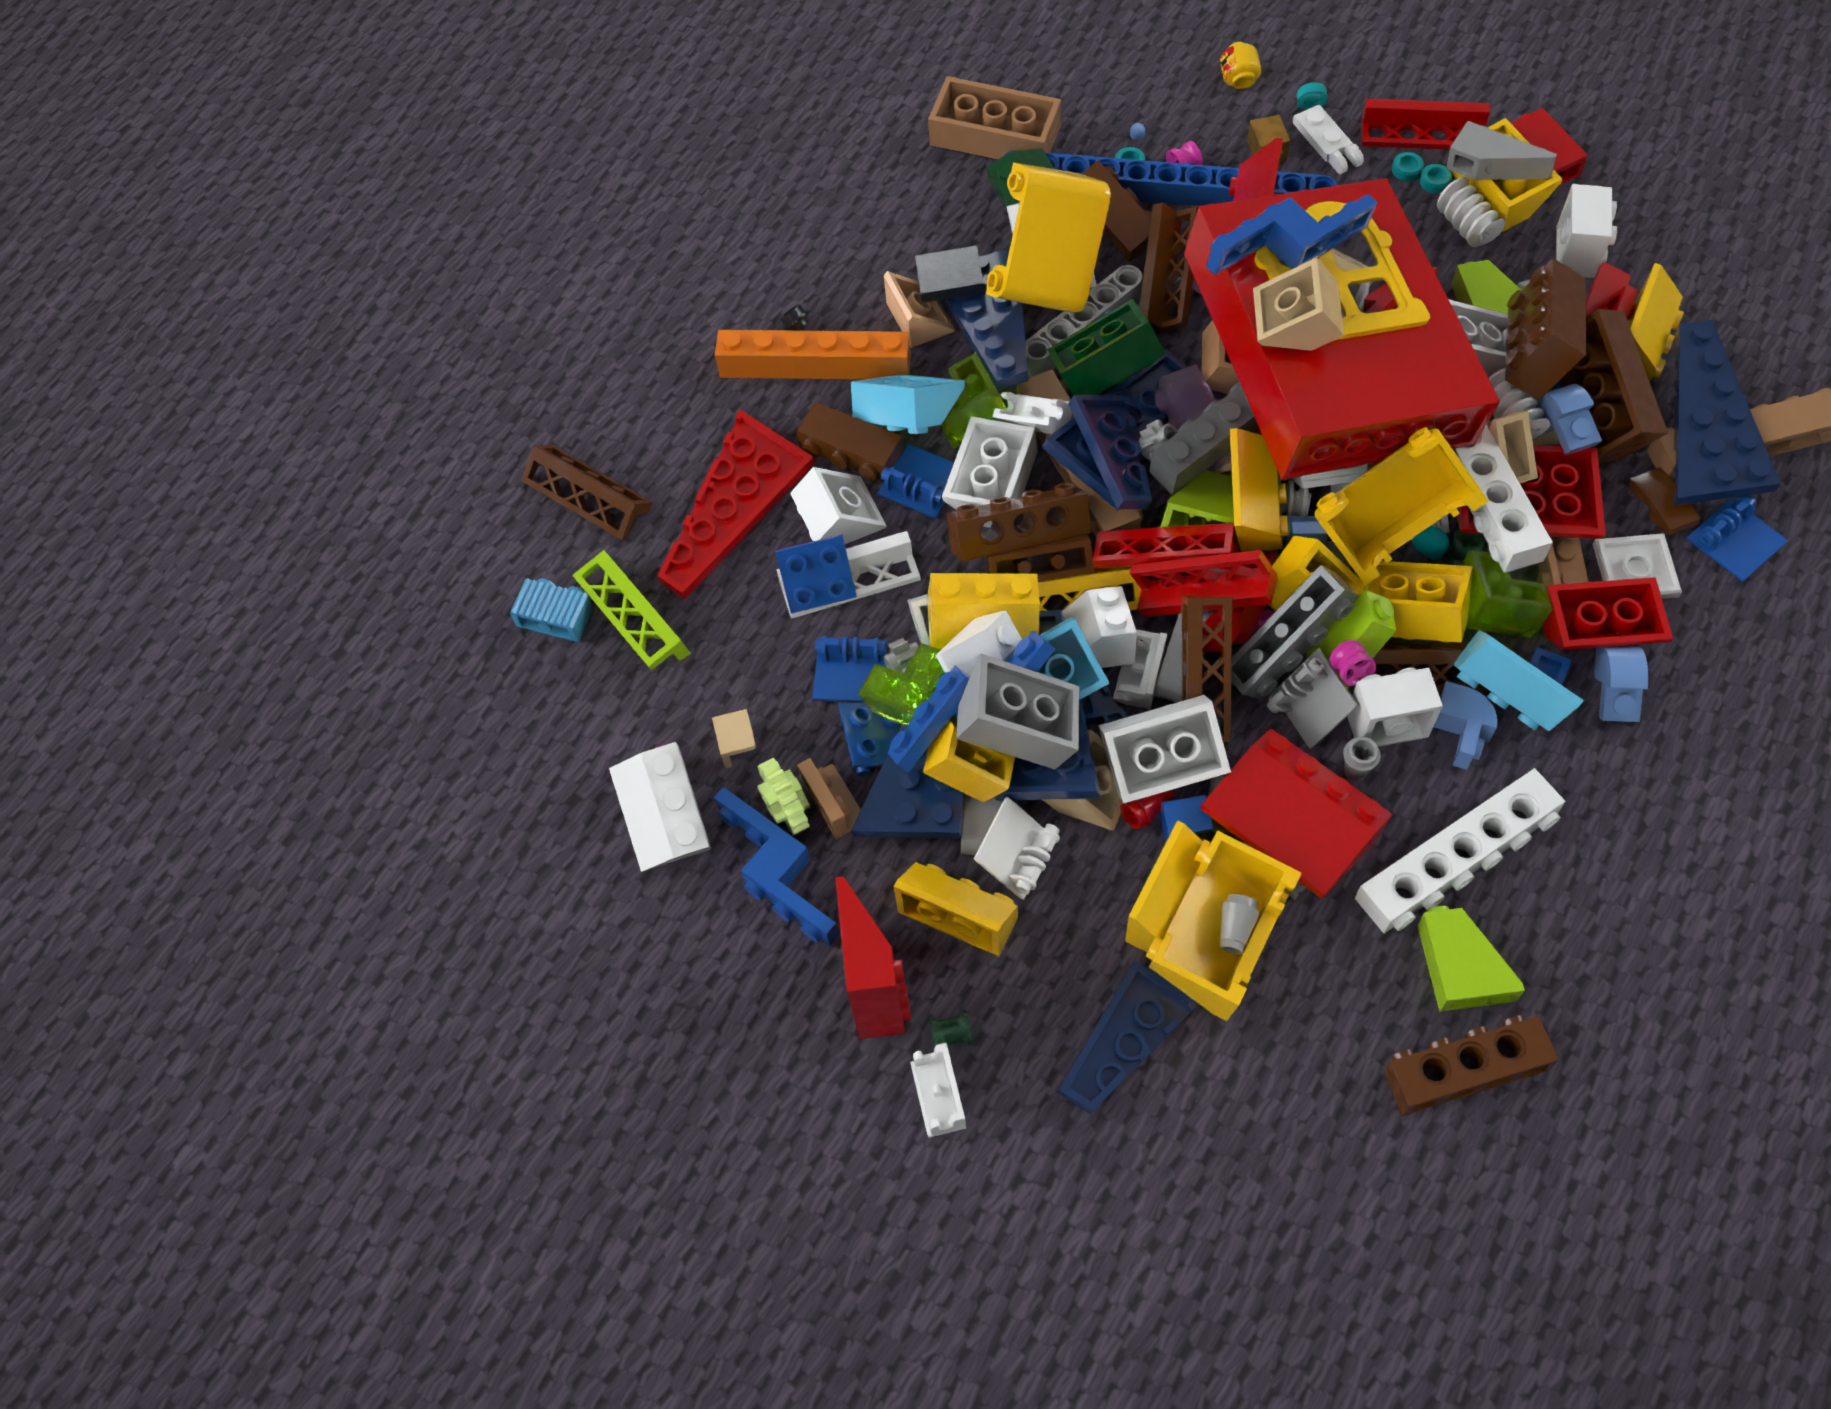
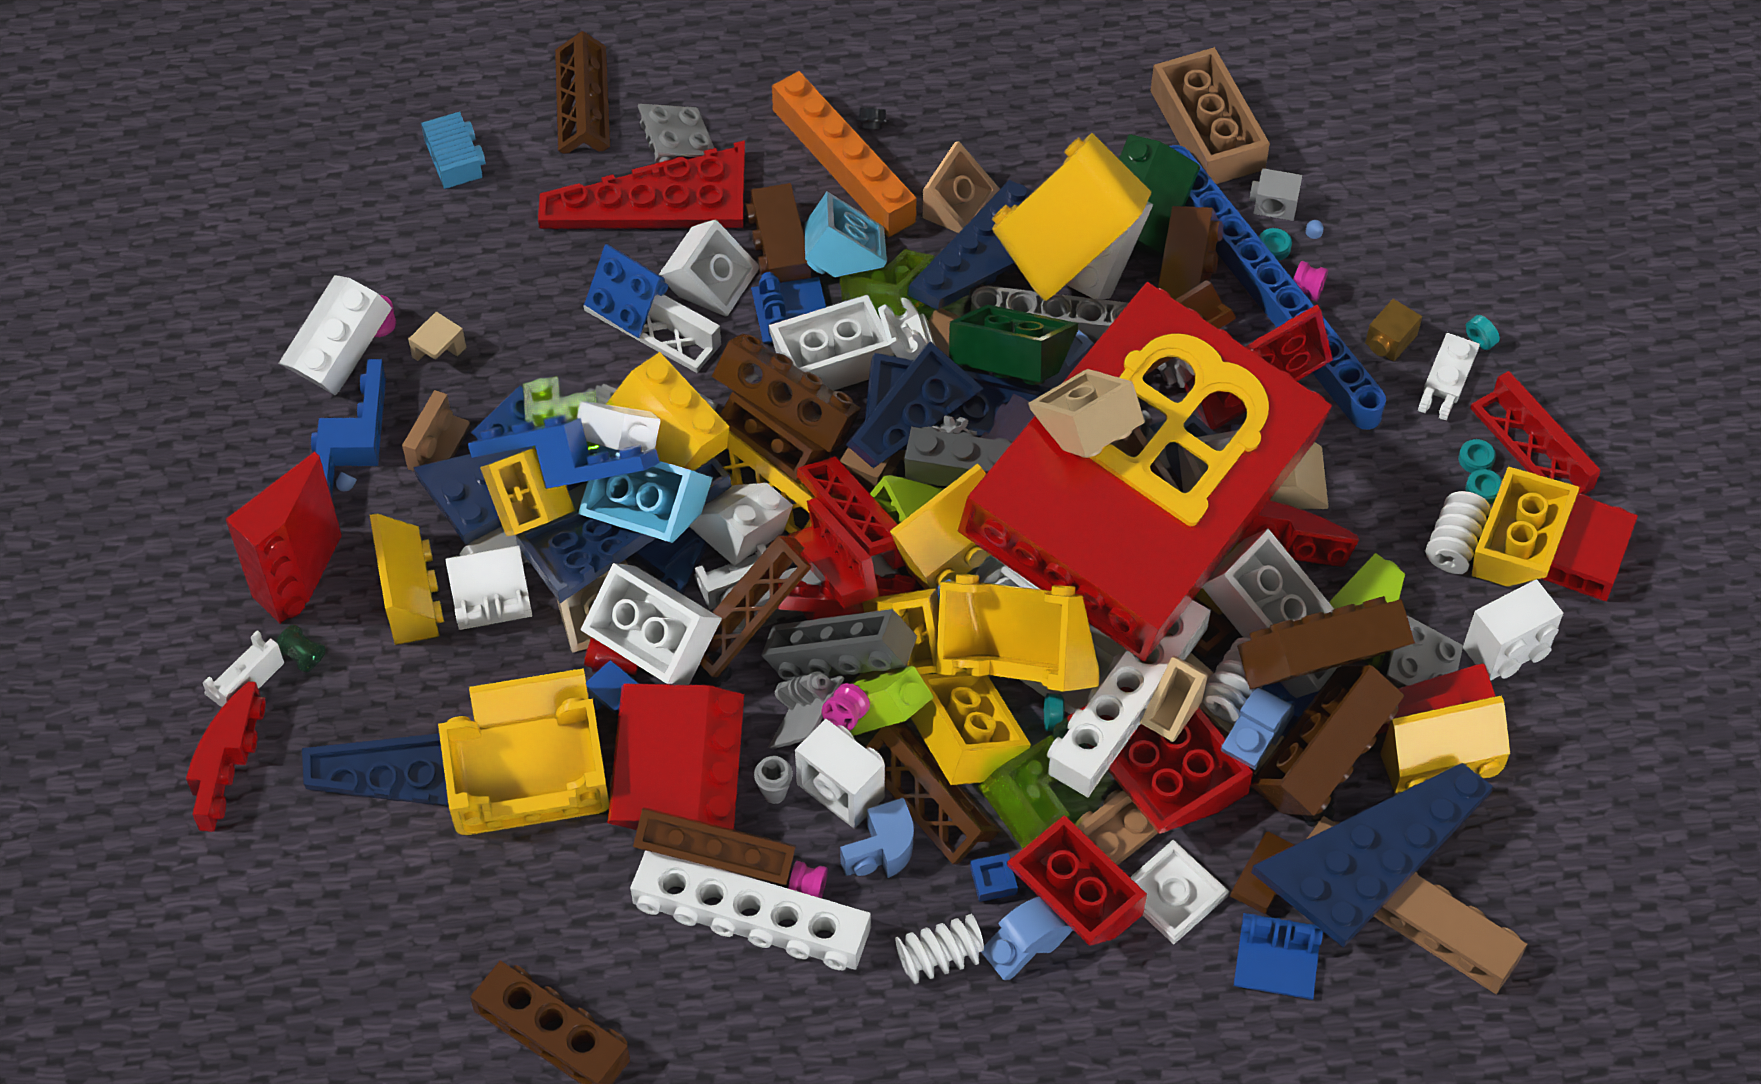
camera: 45 degrees right, 5 degrees down
(641, 606) = (503, 199): lime fence -> none
(683, 452) = (674, 131): none -> light grey hinge
(783, 796) = (403, 401): yellowish green gear -> none
(807, 893) = (345, 482): none -> medium blue piece
(844, 666) = (573, 366): blue hinge -> none
(949, 274) = (1000, 183): tile -> none
(1001, 1145) = (224, 743): none -> red slope
(1019, 713) = (573, 486): light grey slope -> none
(1094, 129) = (1276, 194): none -> light grey brick
(1237, 922) = (538, 777): light grey cone -> none
(1240, 65) = (1463, 256): yellow head -> none
(1290, 233) = (1168, 360): blue bracket -> none
(1400, 837) = (714, 846): none -> reddish brown fence
(1464, 795) = (808, 880): none -> dark pink wheel
(1464, 963) = (642, 969): lime slope -> none
(1495, 156) = (1509, 498): light grey slope -> none
(1515, 682) = (945, 844): medium azure slope -> none
(1591, 742) = (940, 948): none -> white piece

